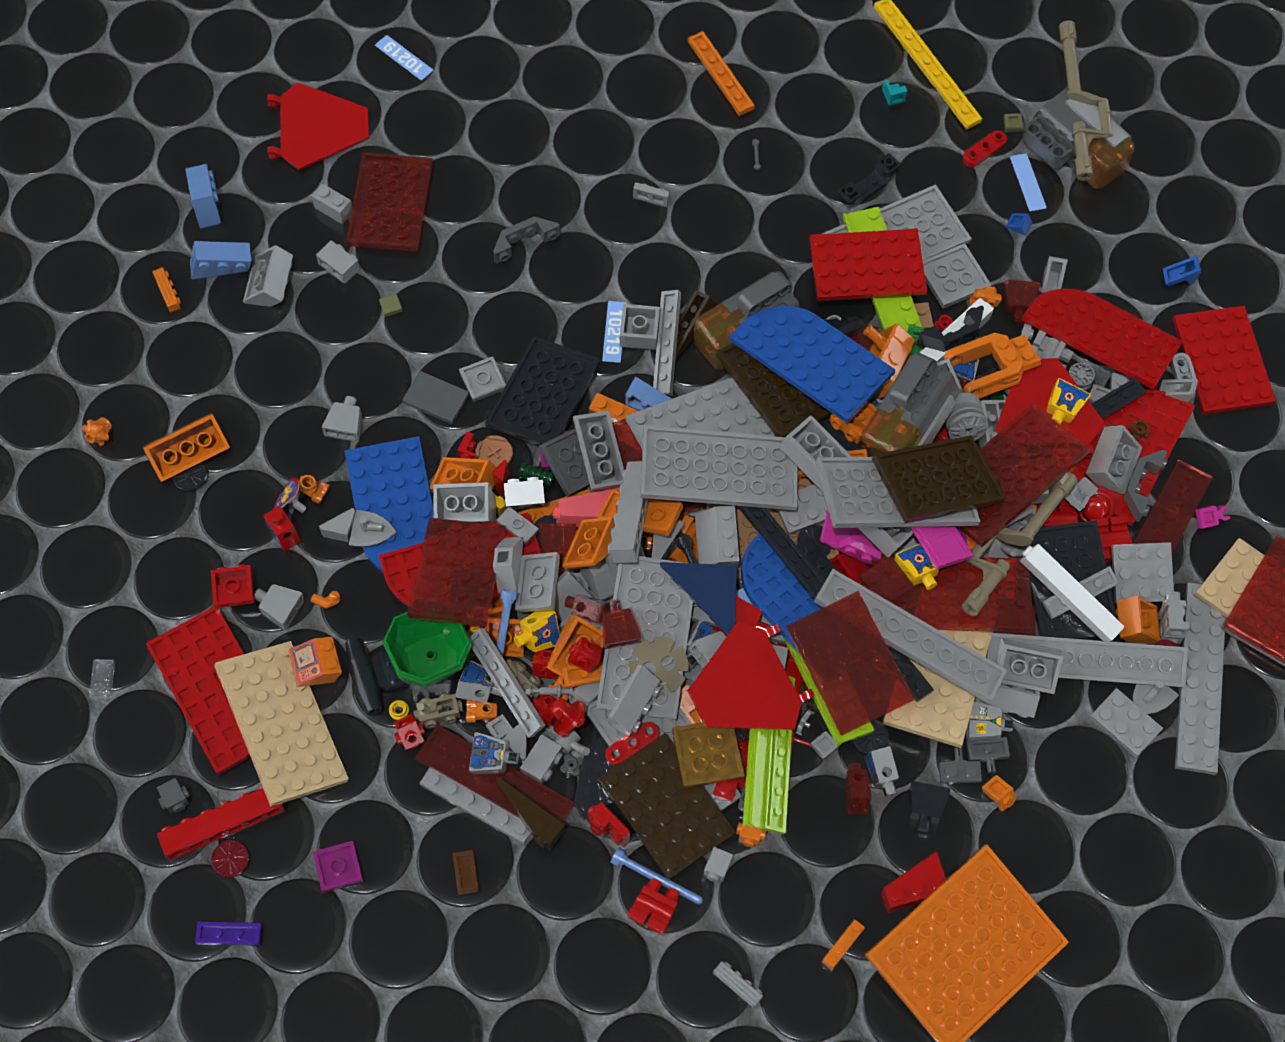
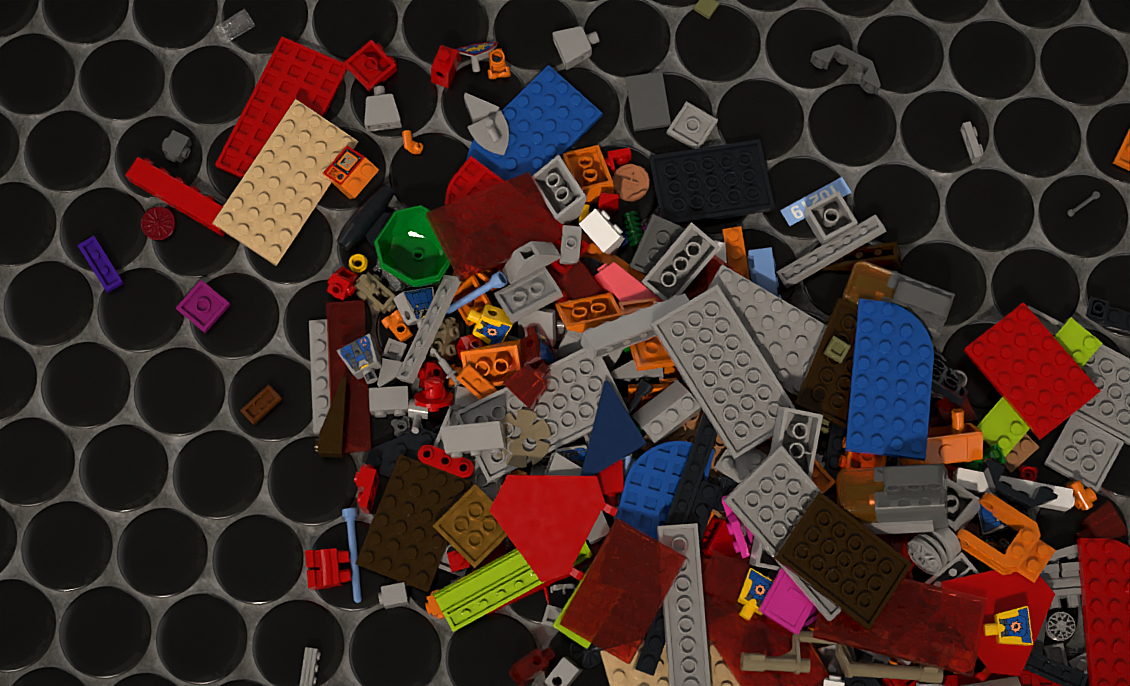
camera: 60 degrees right, 10 degrees up
(585, 654) = (488, 373): red brick -> none
(758, 378) = (836, 349): none -> olive tile

